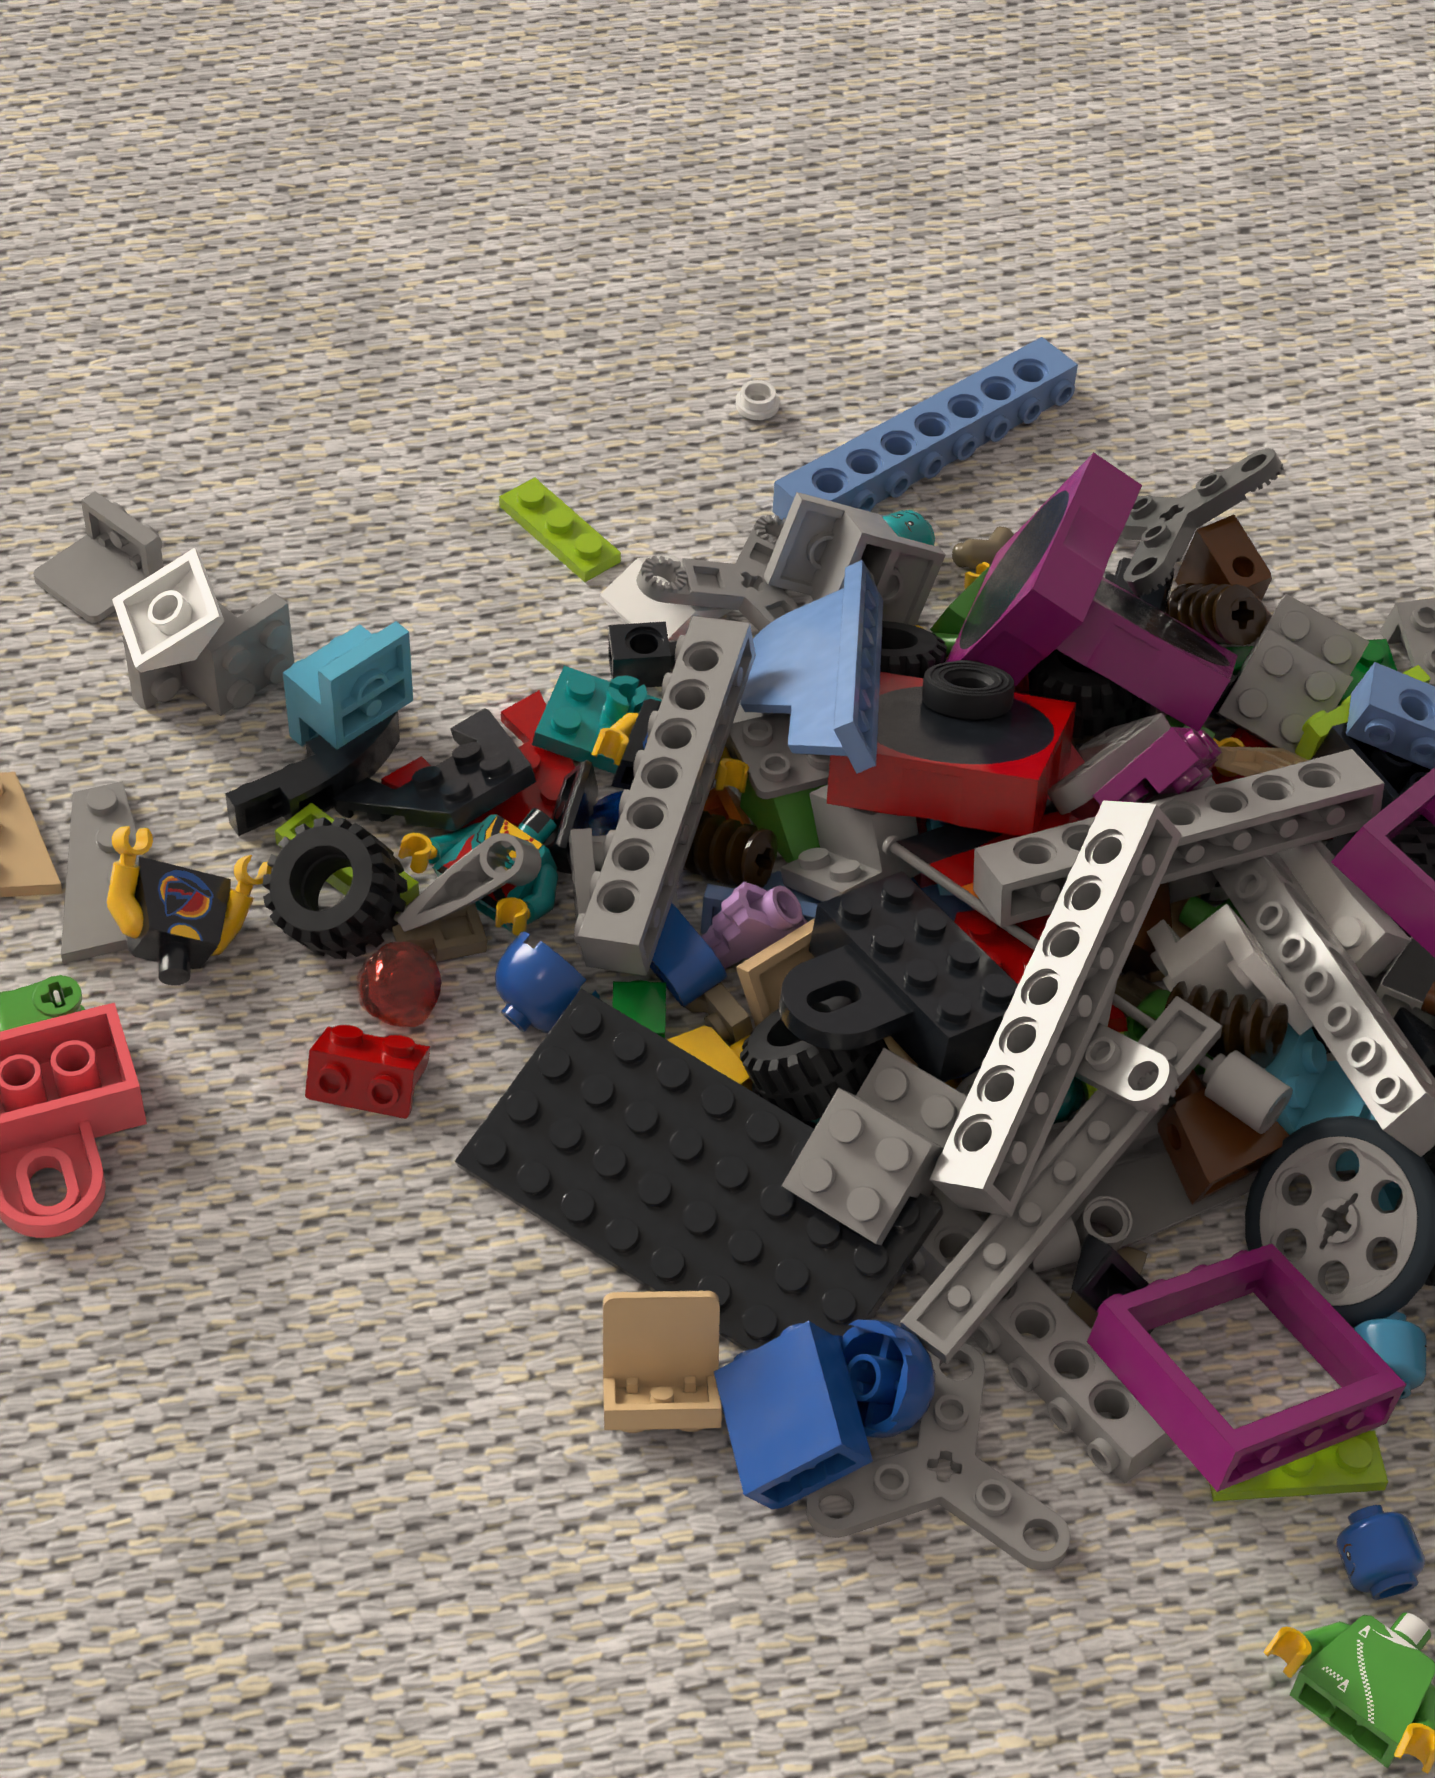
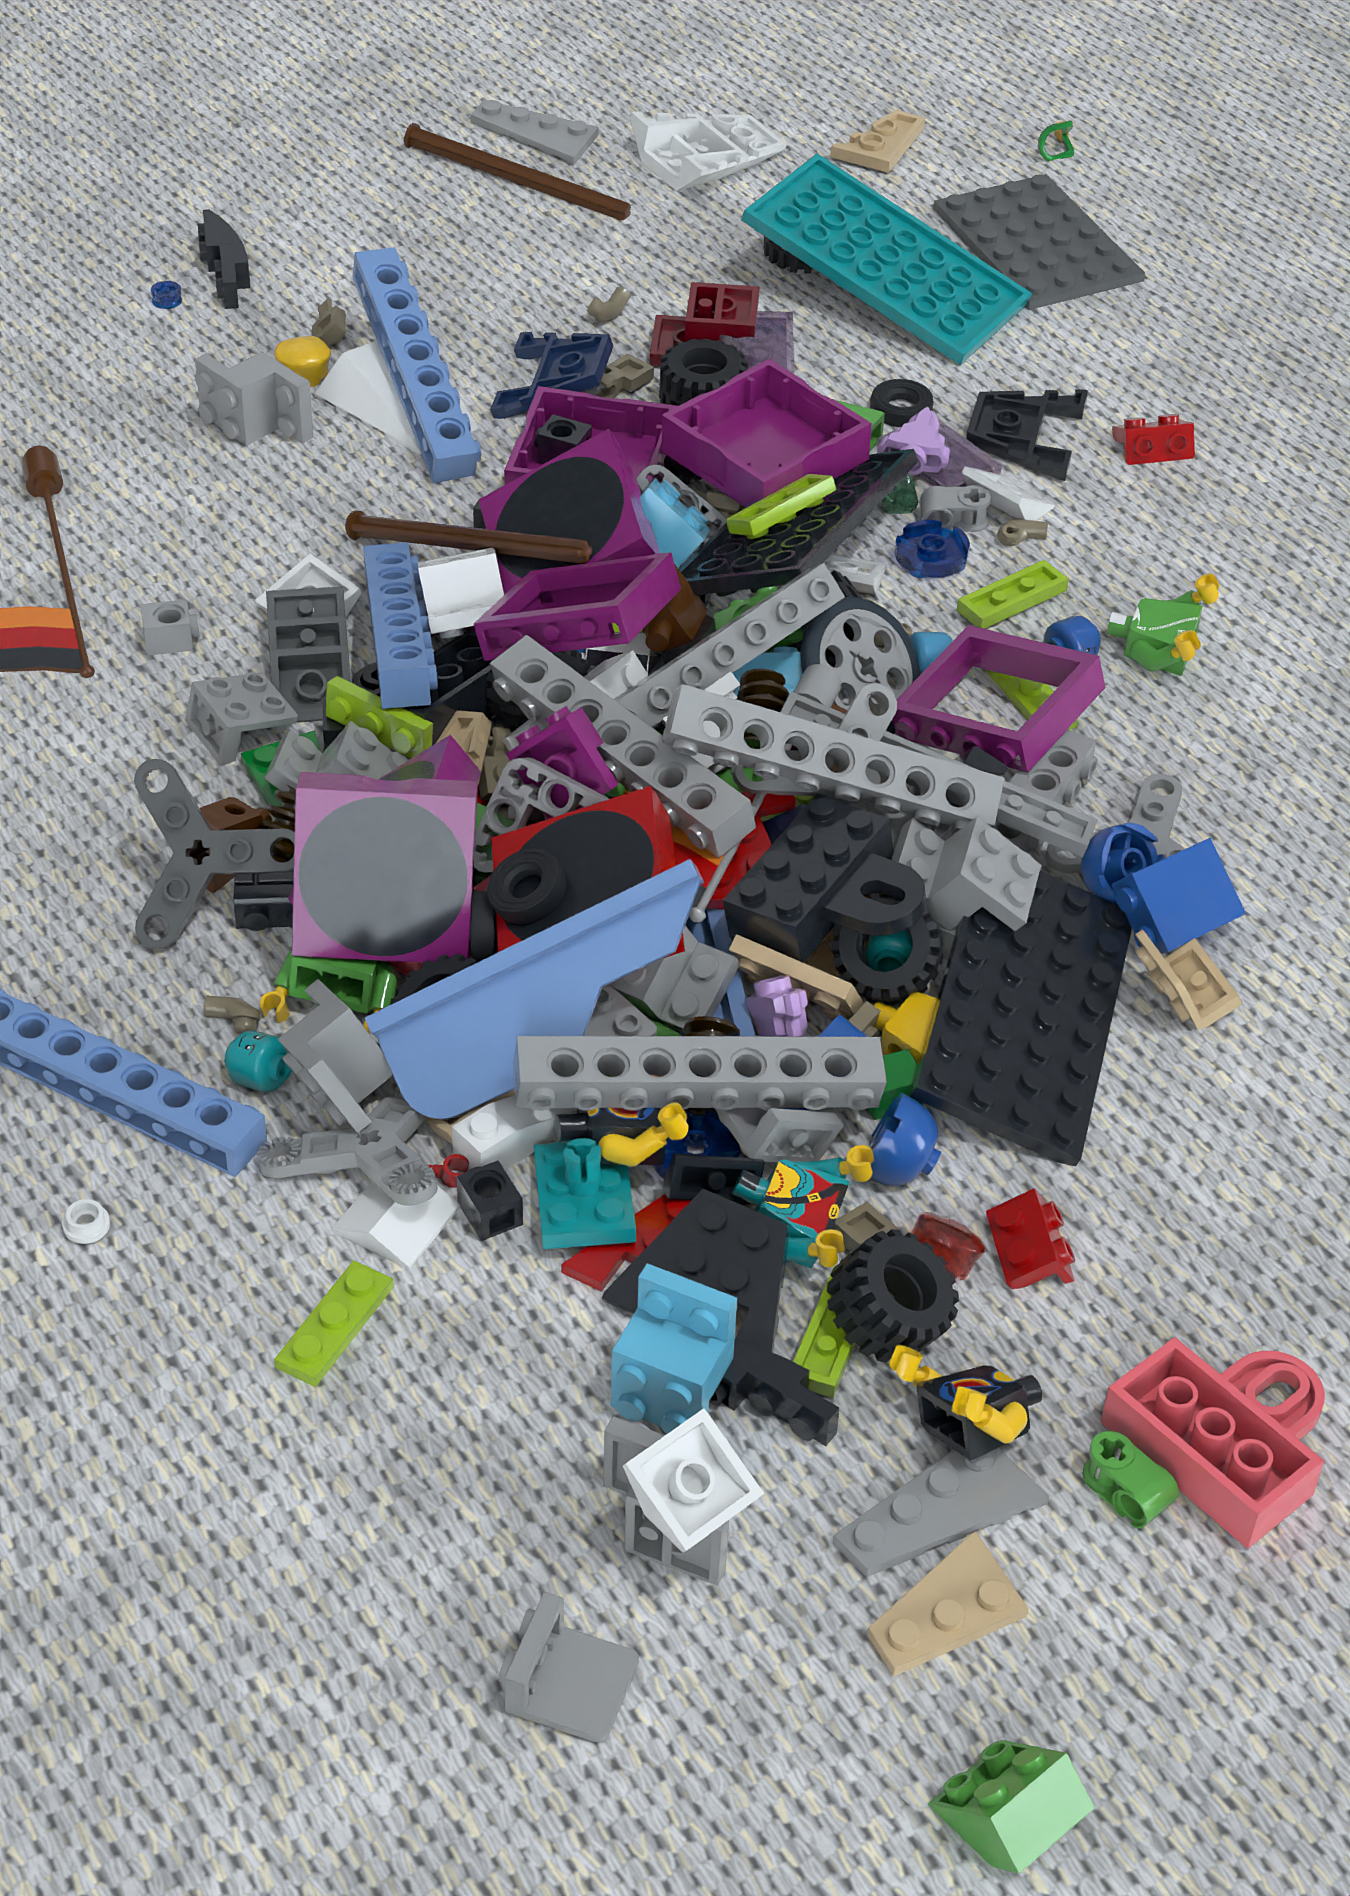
camera: 110 degrees left, 5 degrees down
(474, 878) = (838, 1176): light grey piece -> none

